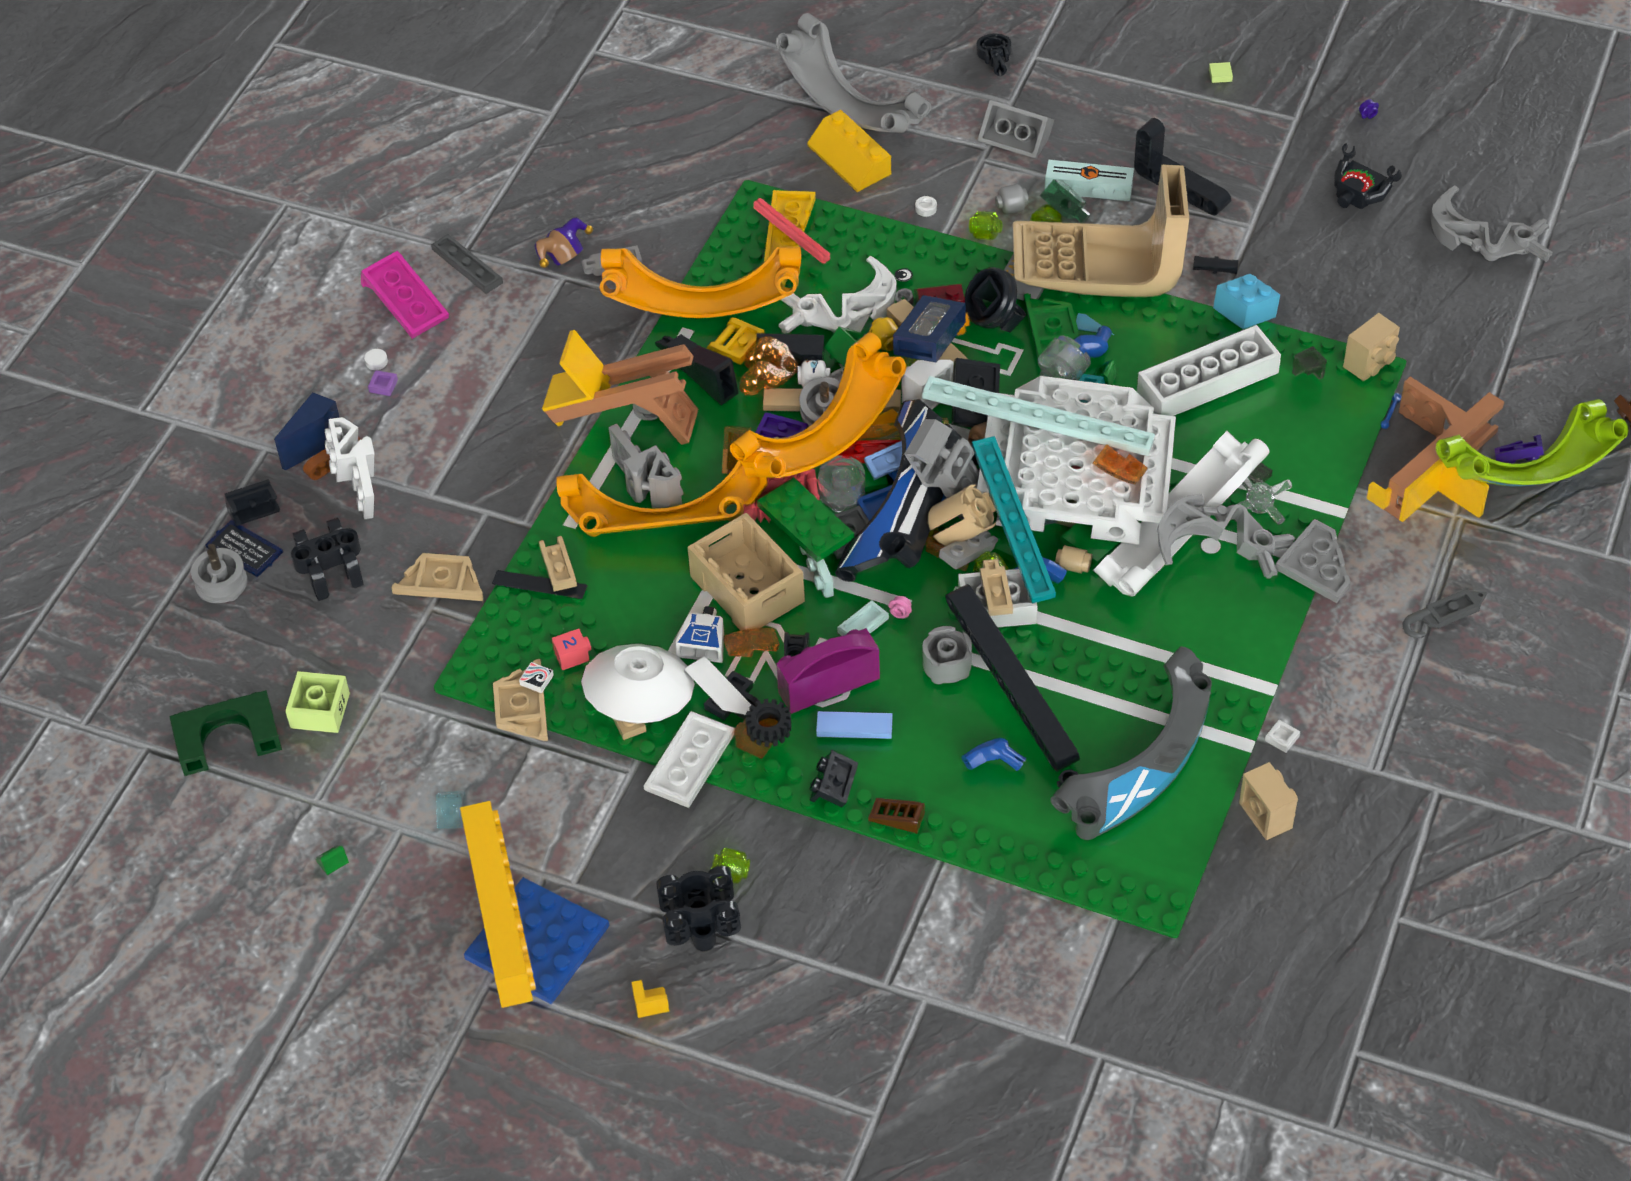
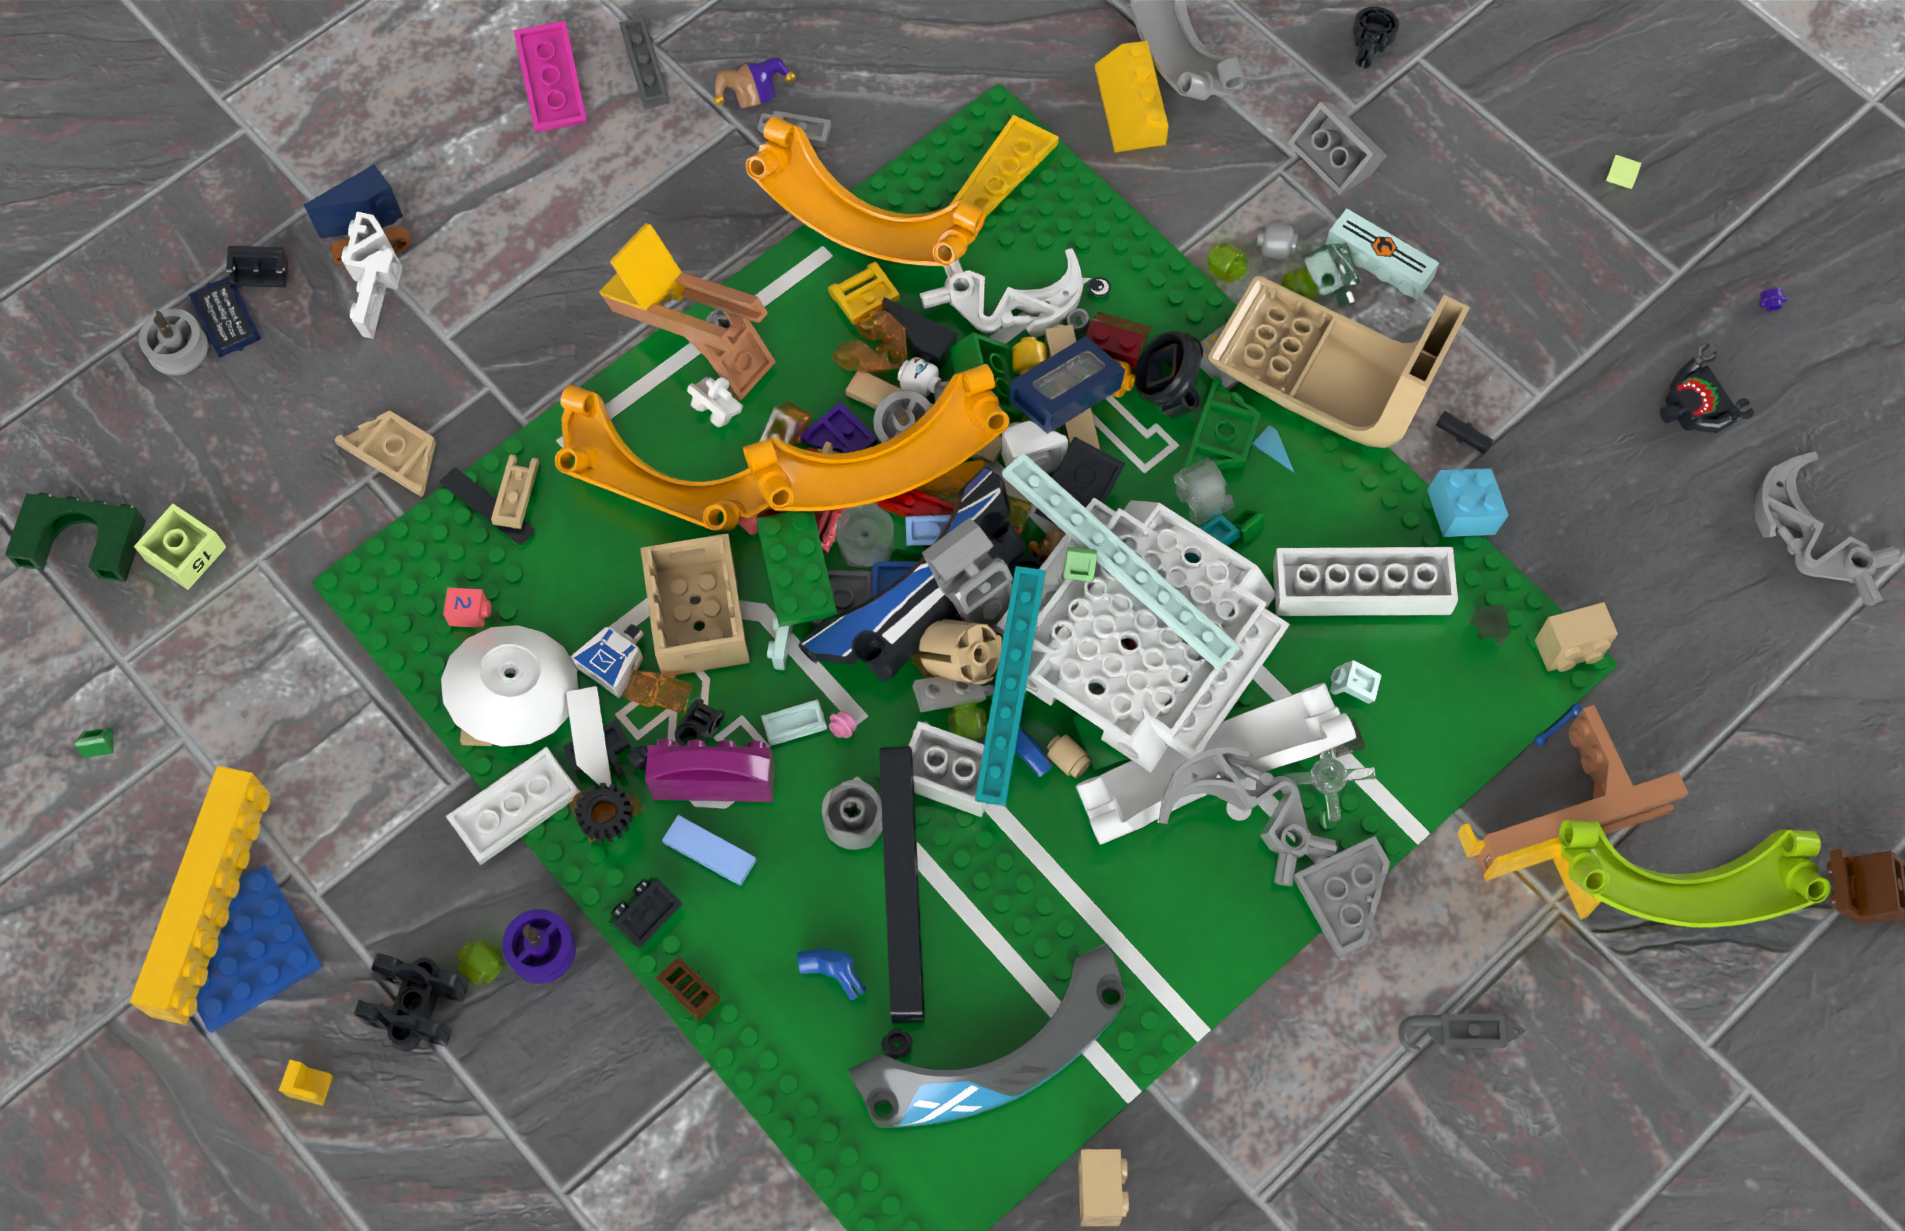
camera: 25 degrees right, 15 degrees up
(325, 552) = (301, 374): black piece -> none
(376, 359) = (483, 142): white tile -> none
(382, 383) = (474, 175): medium lavender tile -> none
(448, 809) = (240, 739): clear light blue bracket -> none
(519, 707) = (381, 648): tan wing -> none
(536, 677) = (406, 628): tile -> none
(646, 471) = (665, 424): light grey piece -> none
(673, 441) = (715, 397): none -> white hips
(708, 369) = (804, 311): black piece -> none
(766, 687) = (638, 757): none -> black plate
(769, 835) = (539, 946): none -> dark purple wheel
(792, 230) = (1000, 178): coral axle -> none
(926, 206) = (1178, 205): white tile -> none
(996, 588) = (944, 763): tan hinge -> none
(1013, 427) = (1080, 564): none -> plate
(1096, 344) = (1251, 480): blue arm -> none
(1124, 469) = (1176, 670): clear orange slope -> none
(1148, 164) = (1483, 292): black beam -> none
(1243, 431) = (1356, 681): none -> light aqua bracket
(1282, 736) = (1176, 1100): white tile -> none
(1520, 450) = (1680, 856): dark purple wing -> none

